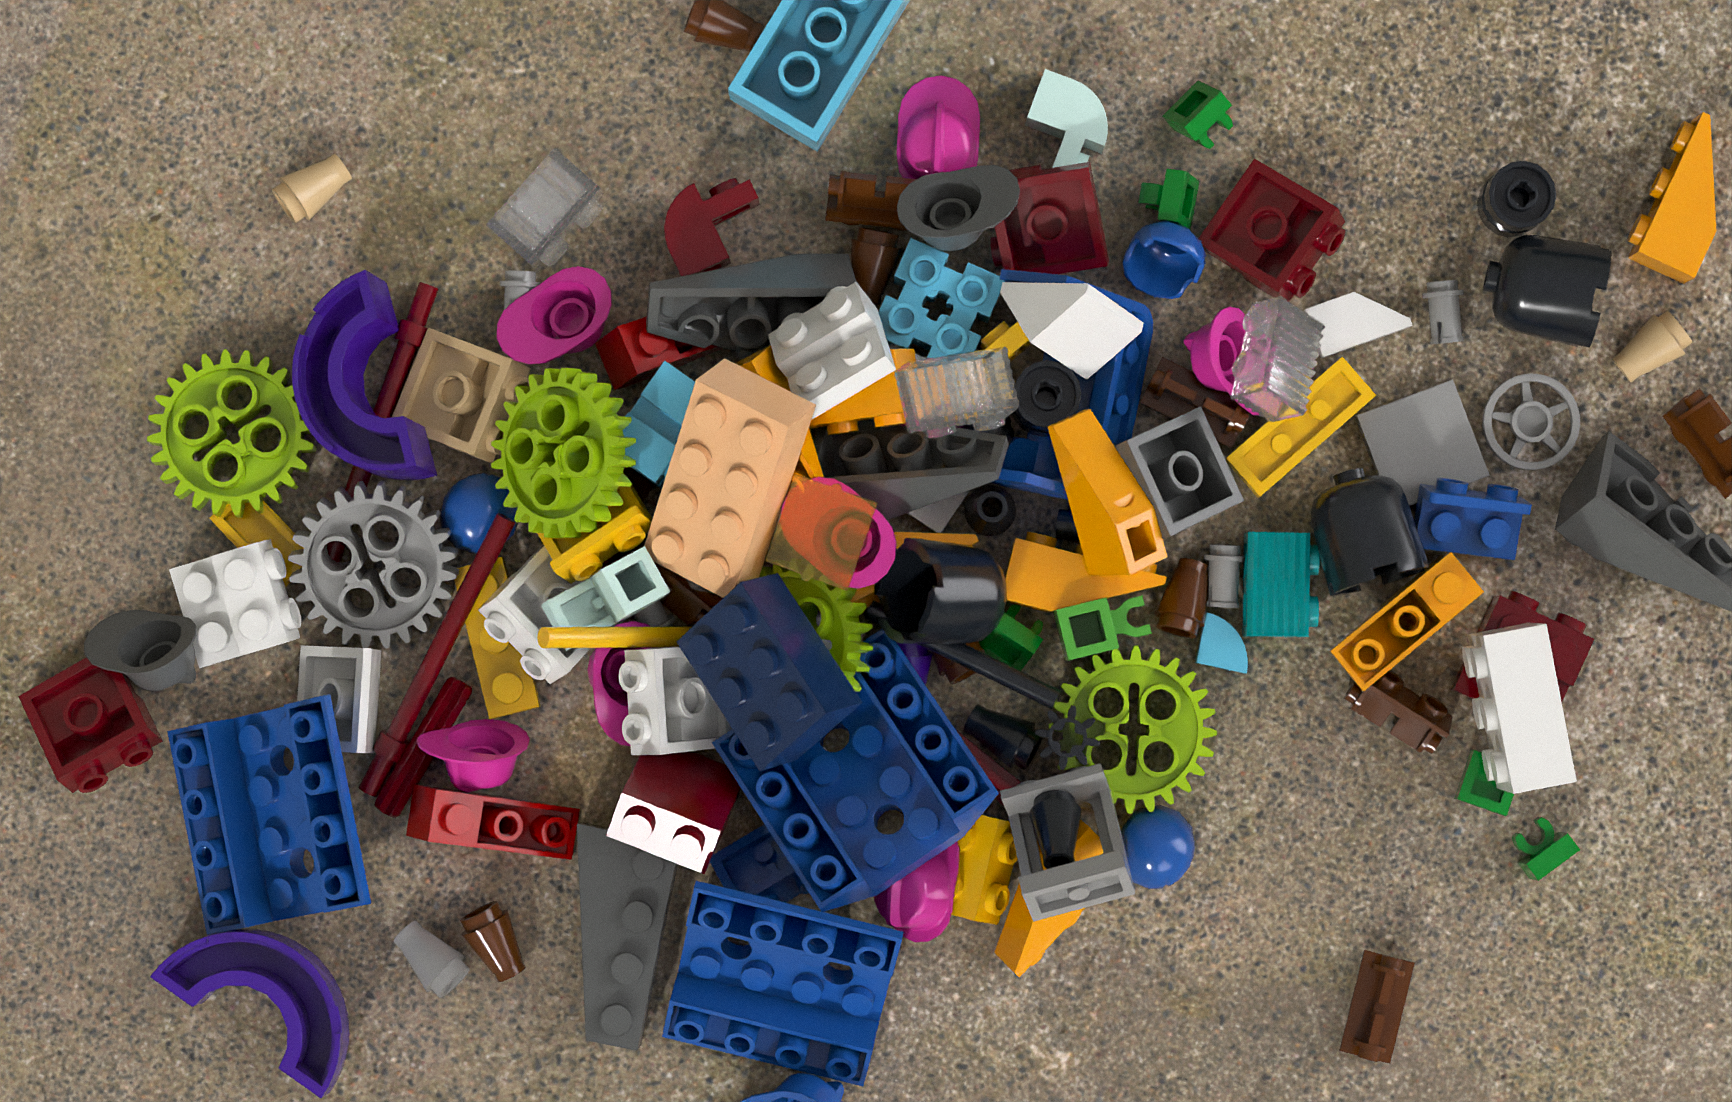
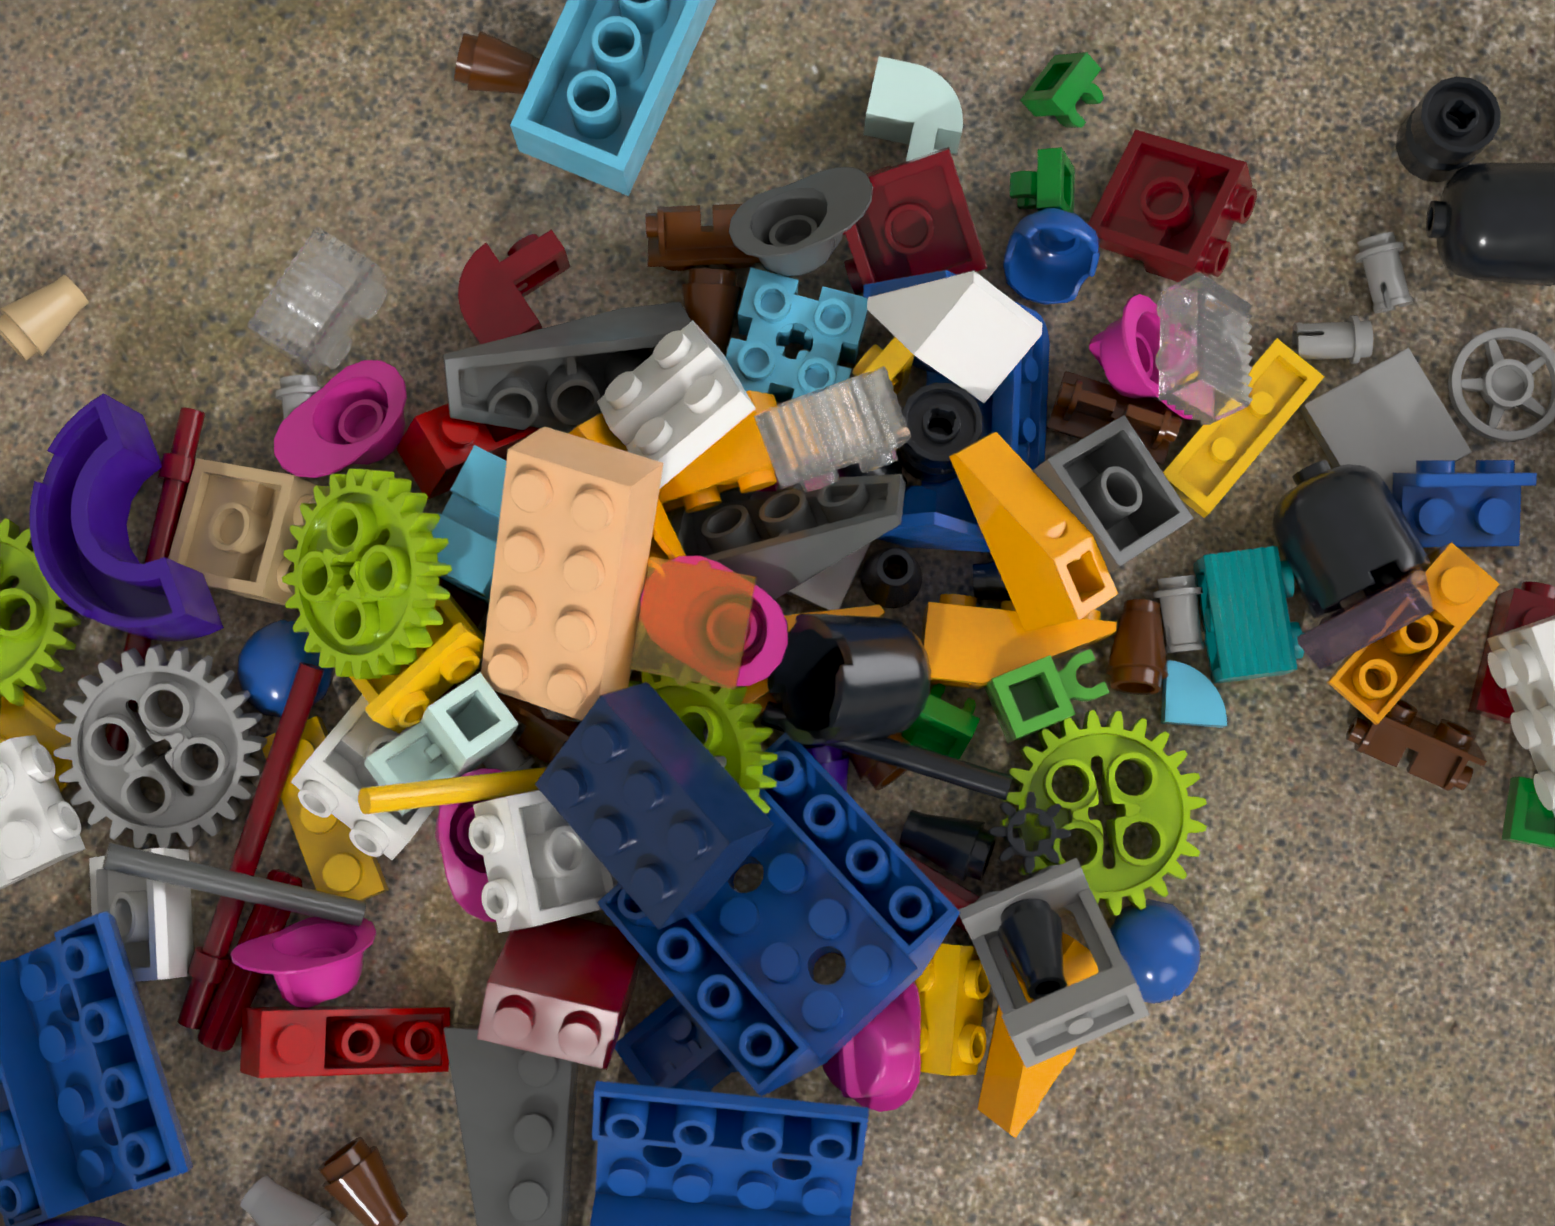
camera: 10 degrees left, 5 degrees down
(424, 686) = (233, 884): none -> dark grey bar
(937, 128) = (762, 146): dark pink piece -> none
(1354, 321) = (1285, 297): white tile -> none
(1369, 605) = (1367, 619): none -> slope
(1376, 1007) = (1452, 1108): reddish brown hinge -> none
(1390, 363) = (1333, 340): none -> light grey pin

